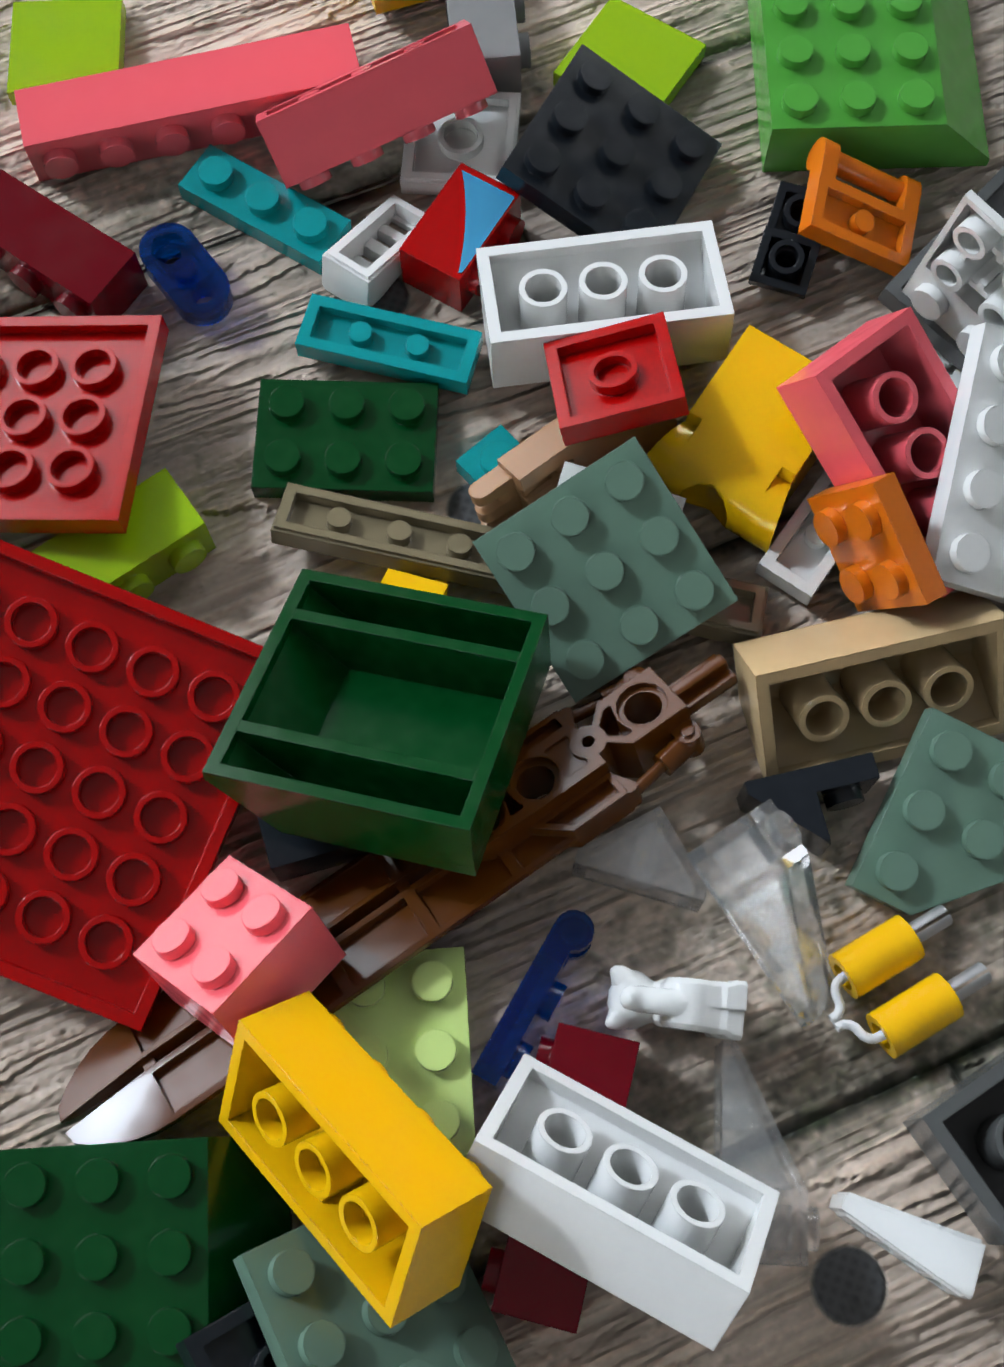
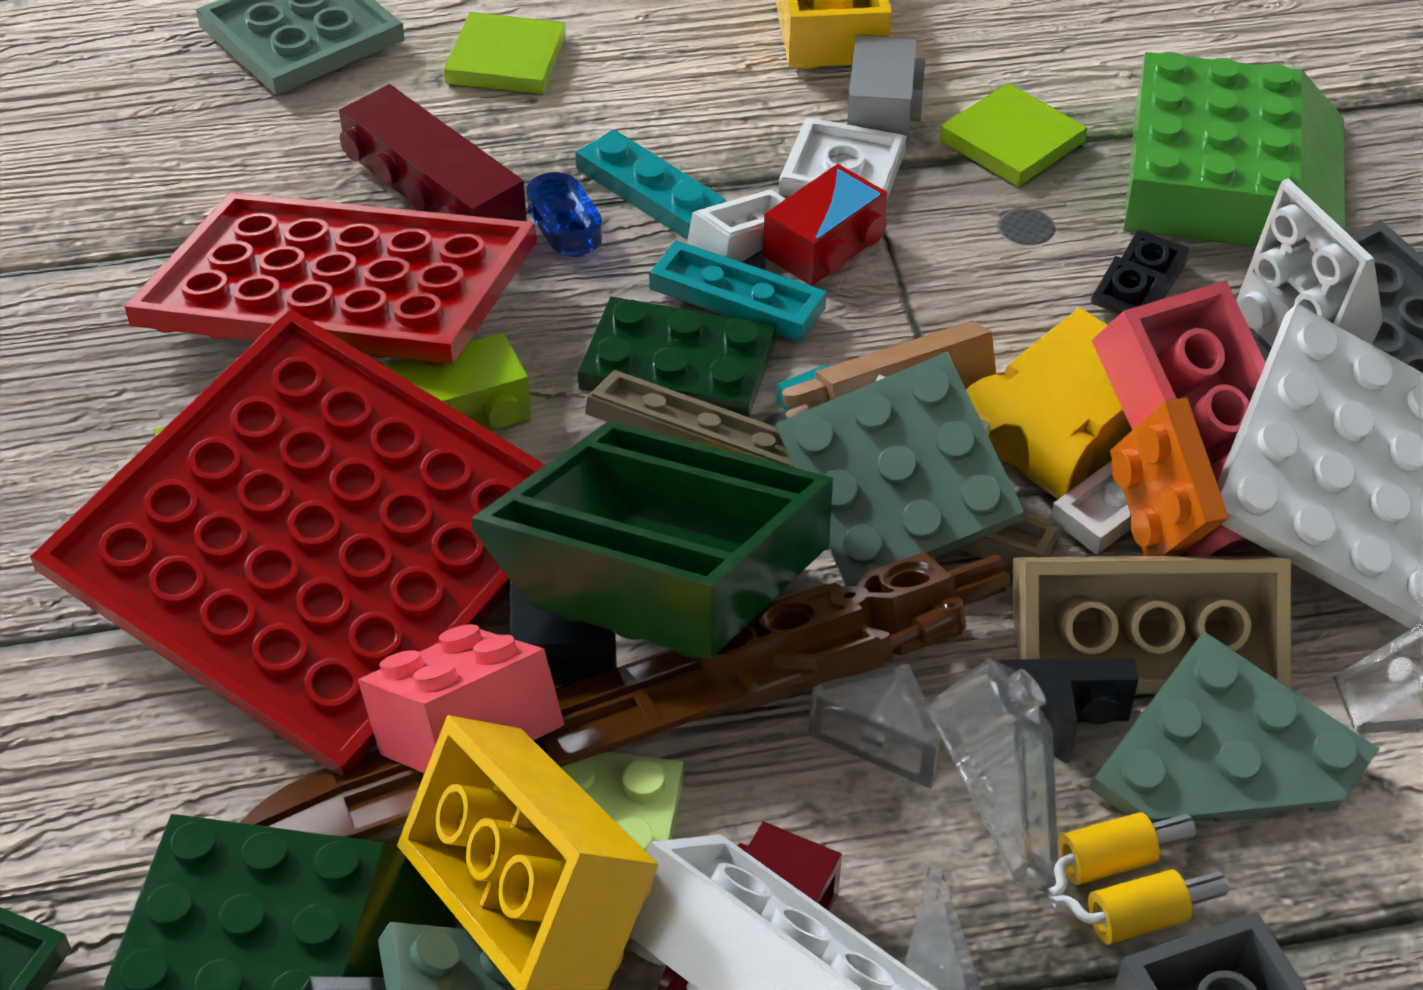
camera: 10 degrees right, 25 degrees down
(173, 102) = (606, 94): coral brick -> none
(377, 105) = (772, 112): coral brick -> none
(535, 997) = (759, 794): clear blue plate -> none
(599, 280) = (926, 278): white slope -> none
(607, 153) = (976, 187): black plate -> none
(615, 379) = (940, 319): red plate -> none
(676, 1003) = (889, 833): white animal -> none
(856, 221) = (1198, 248): orange plate -> none

